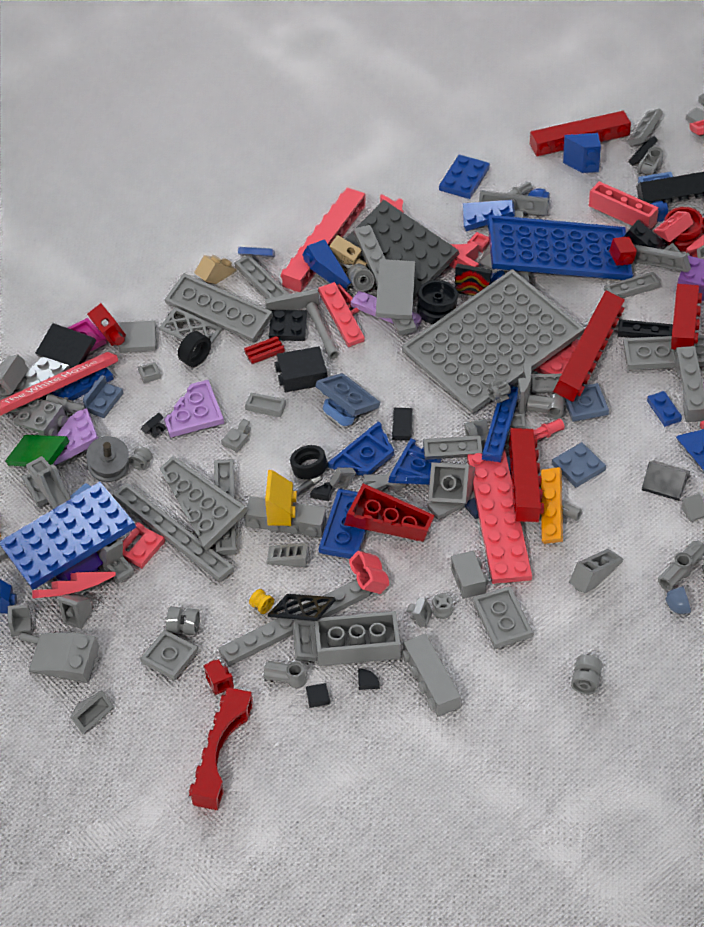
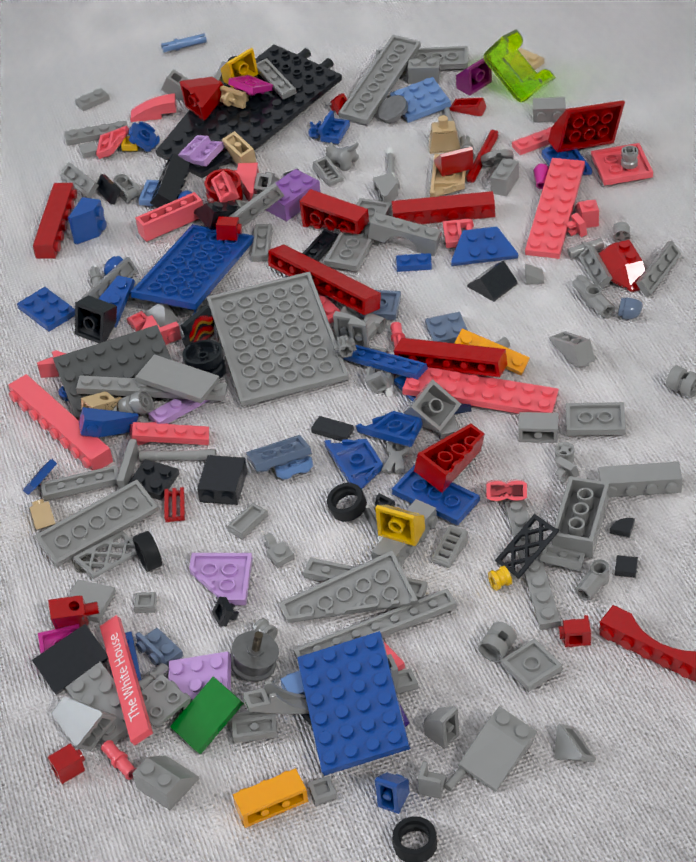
camera: 65 degrees left, 5 degrees down
(79, 582) = (417, 716): coral slope -> none
(342, 477) = (380, 479): light grey tile -> none
(451, 447) = (391, 395): light grey plate -> none
(457, 208) = (94, 319): none -> black slope

